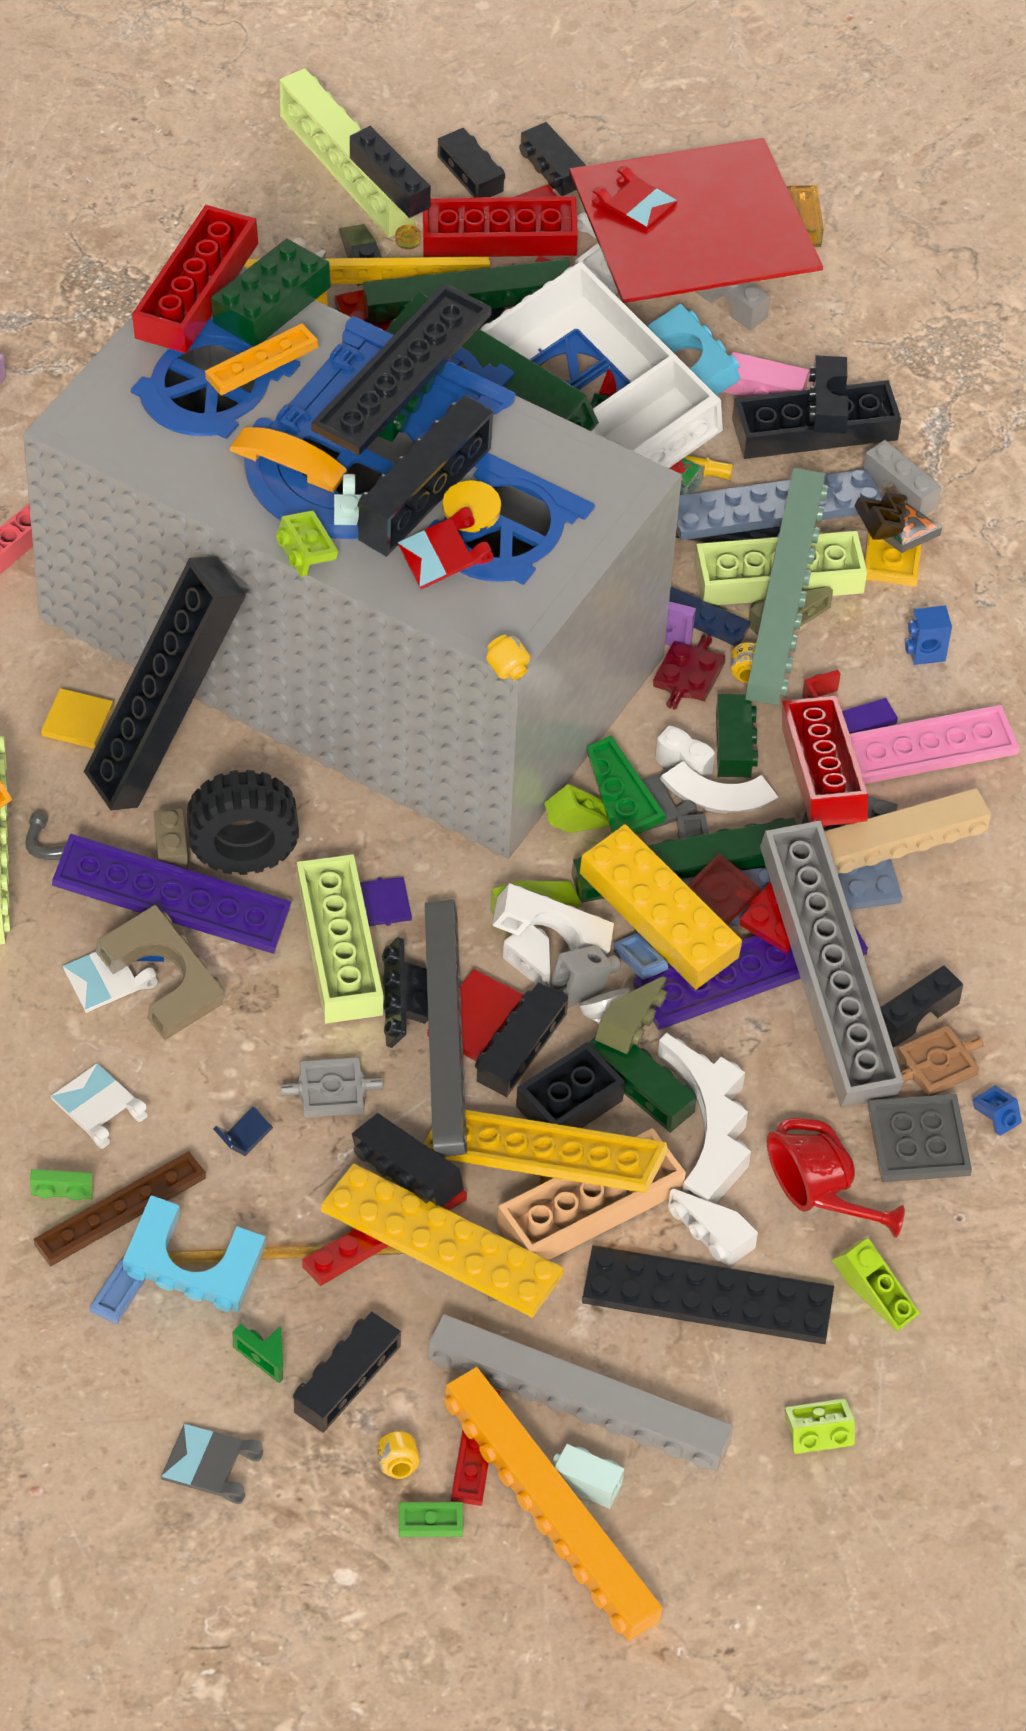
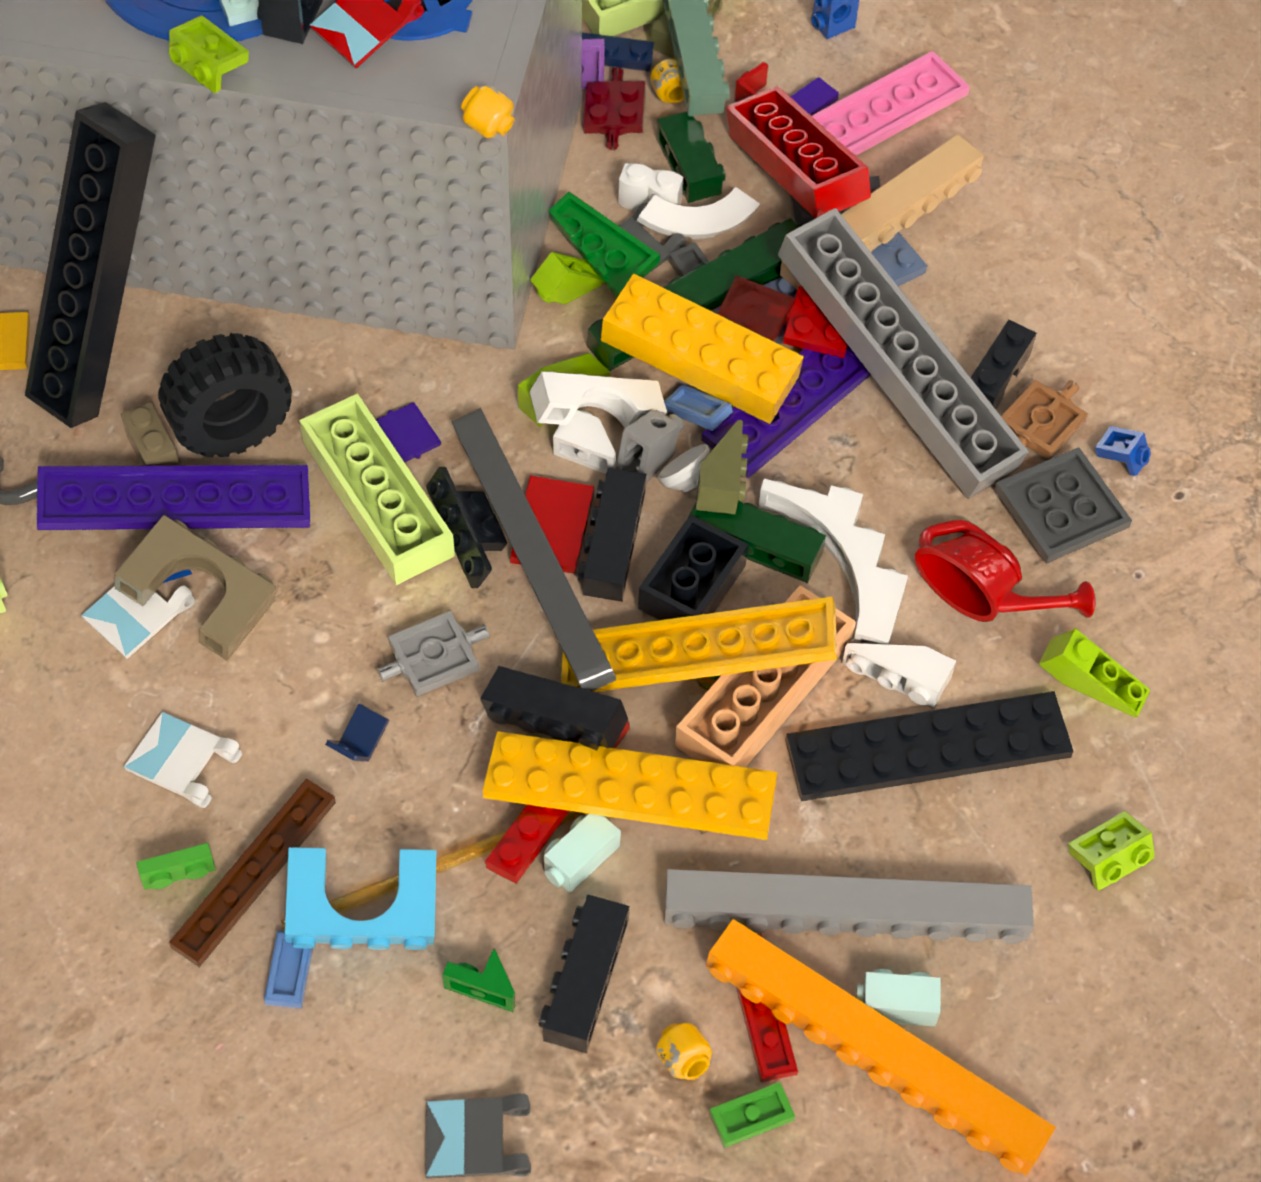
camera: 20 degrees left, 5 degrees up
(383, 1279) = (580, 851): none -> light aqua brick

